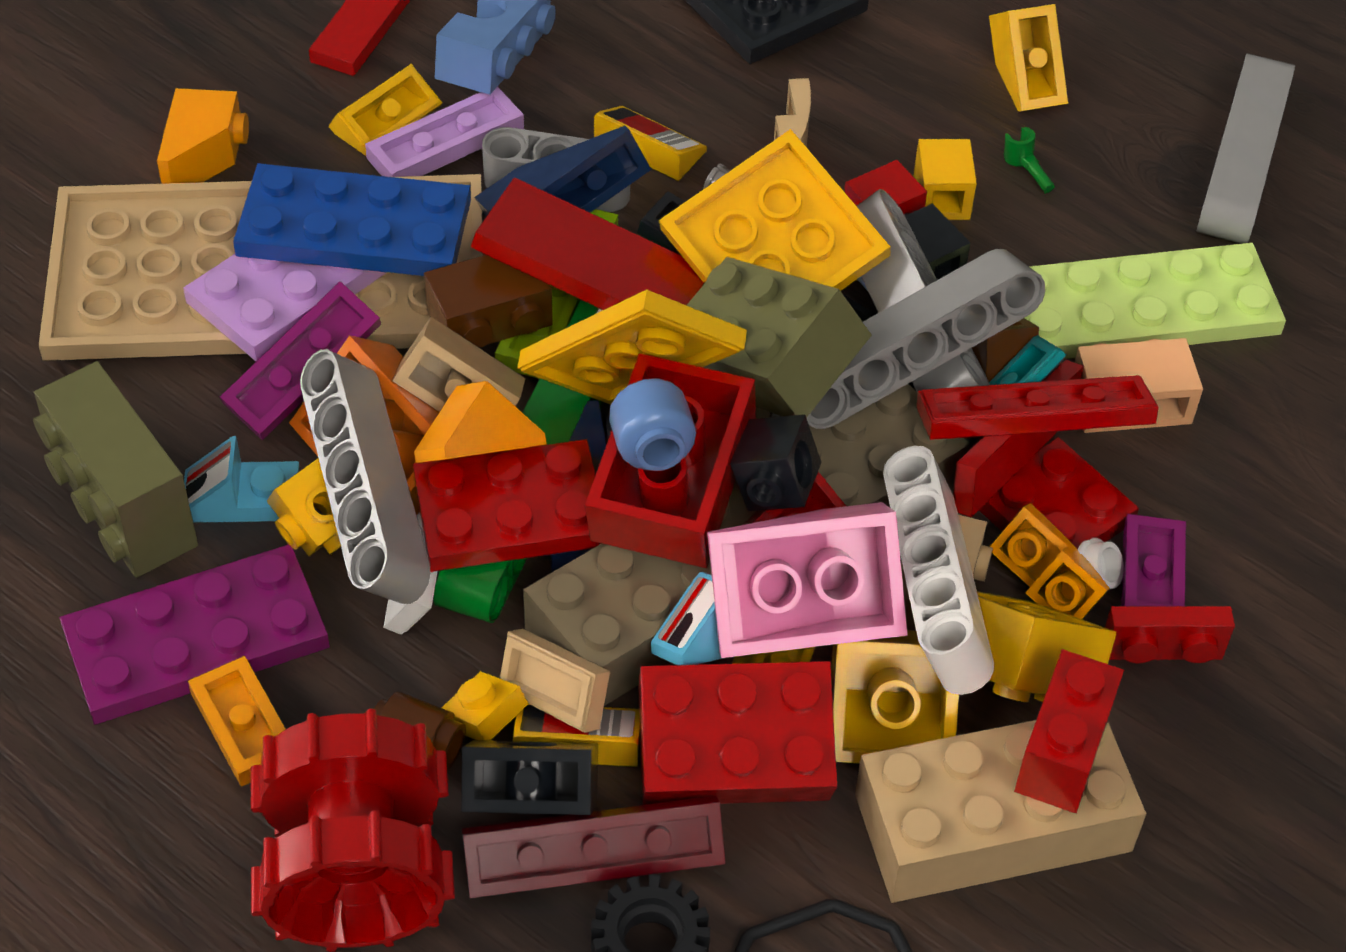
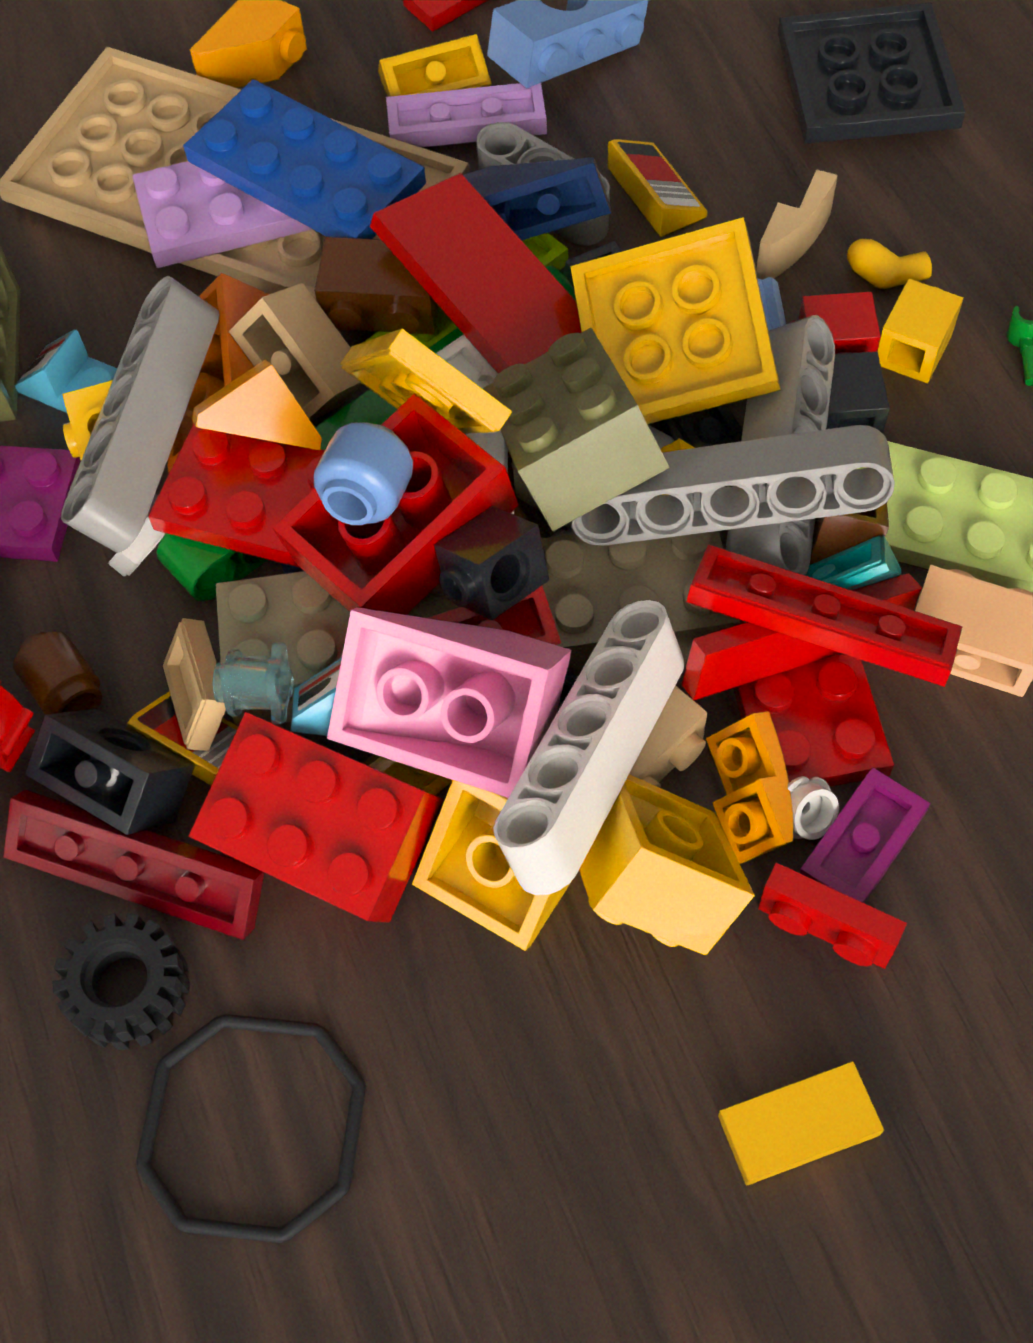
camera: 35 degrees right, 10 degrees up
(273, 383) = (235, 252): magenta plate -> none
(486, 705) = (131, 679): yellow plate -> none
(631, 641) = (255, 682): none -> clear light blue brick
(879, 140) = (885, 268): none -> yellow arm
(951, 819) = (528, 1013): tan brick -> none
(1068, 731) = (606, 985): red brick -> none
(1237, 790) = (800, 1123): none -> yellow tile

